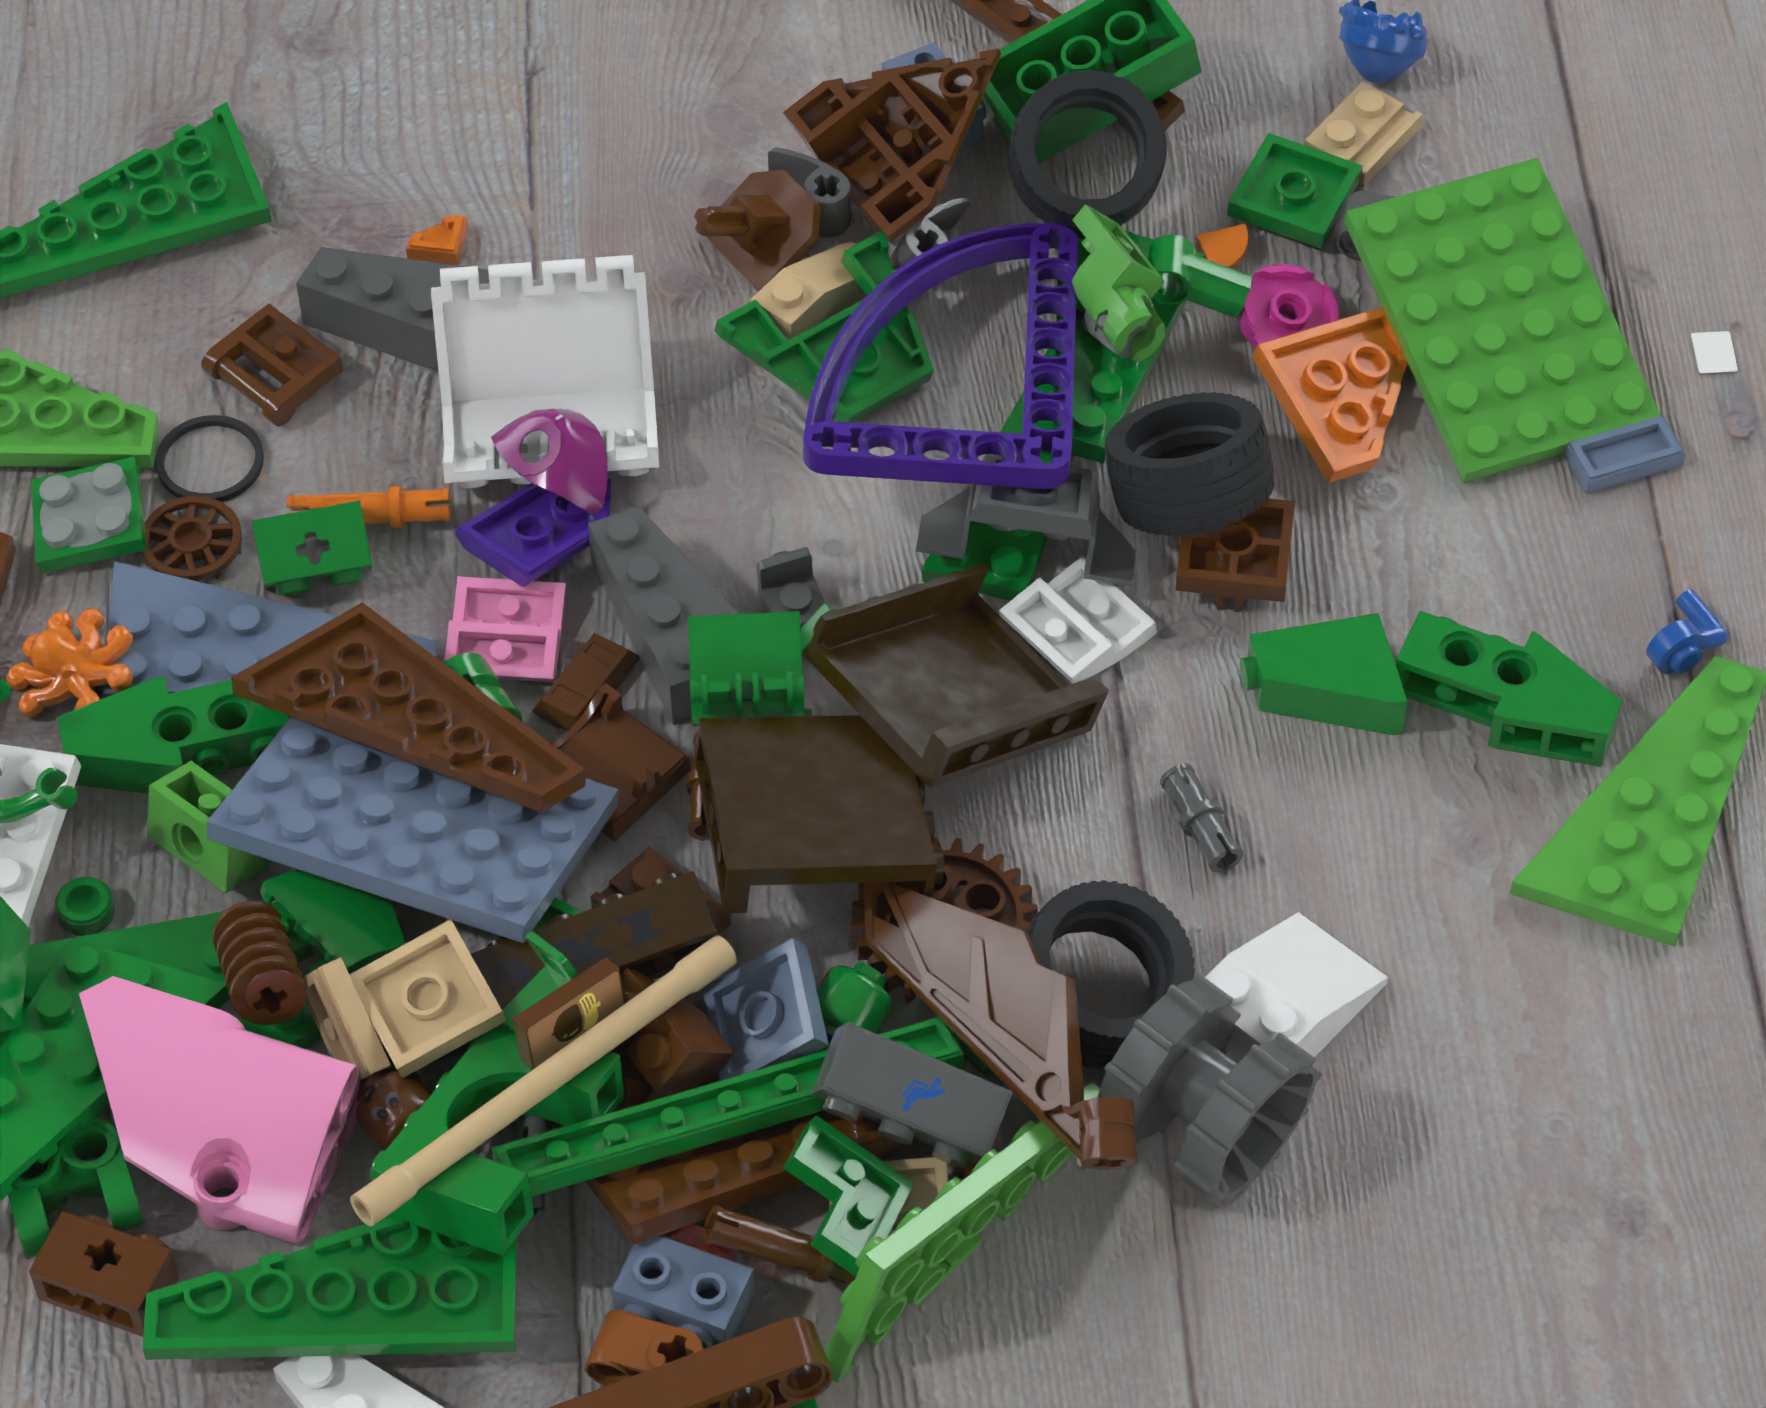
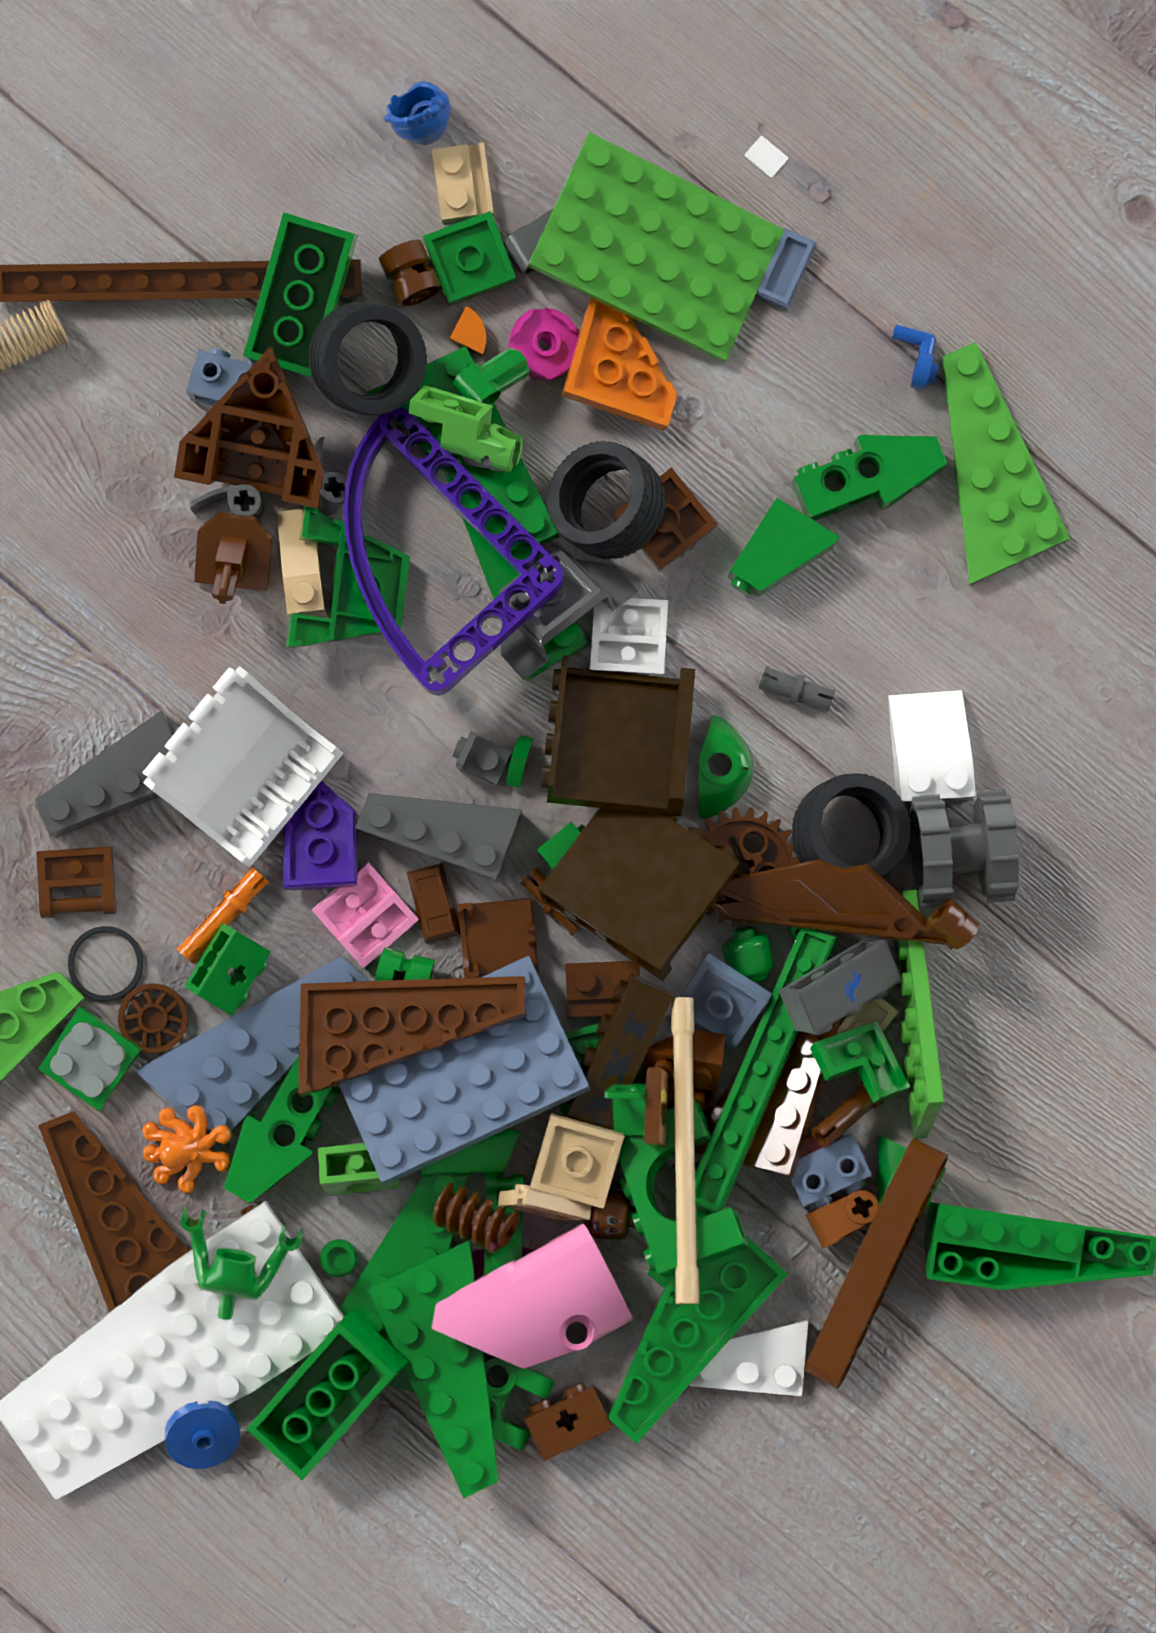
camera: 50 degrees left, 30 degrees up
(440, 242) = (70, 720): orange tile -> none
(575, 457) = (304, 791): magenta piece -> none
(745, 665) = (526, 837): green hinge -> none
(1027, 837) = (722, 792): none -> green piece
(1218, 150) = (411, 276): none -> reddish brown wheel

